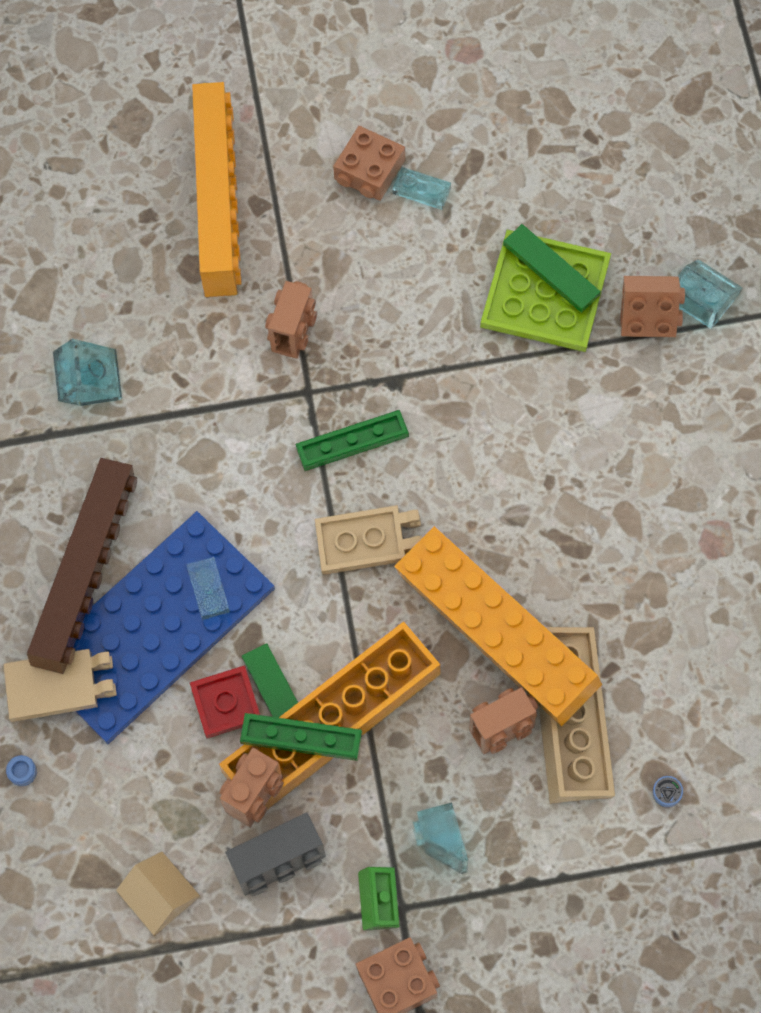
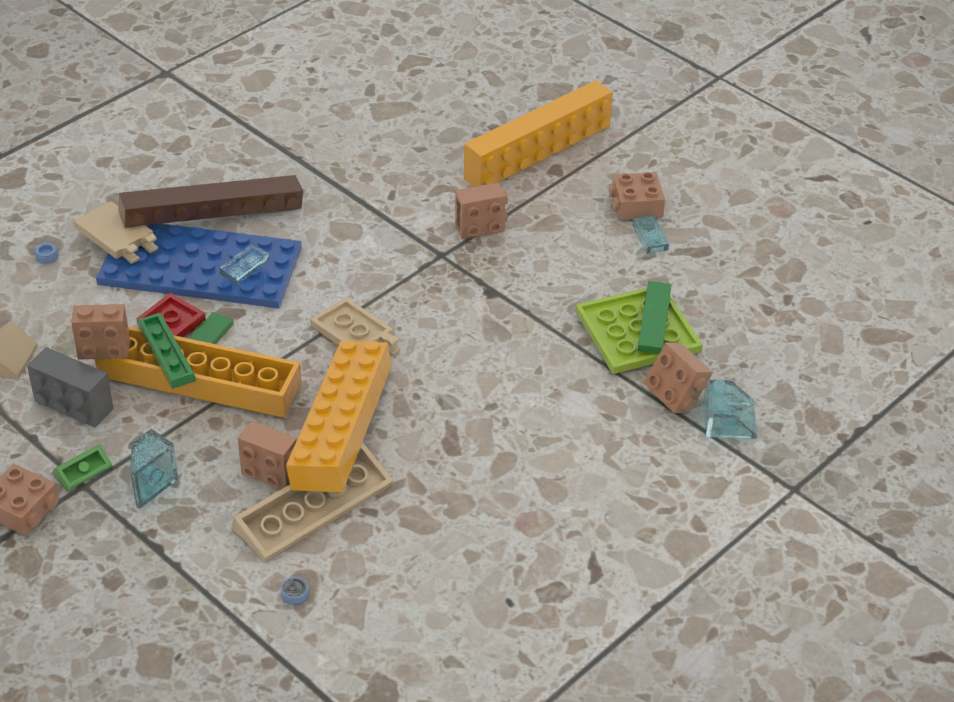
camera: 50 degrees right, 25 degrees down
(86, 373) = (353, 148): clear light blue slope -> none
(352, 440) = (425, 290): green tile -> none

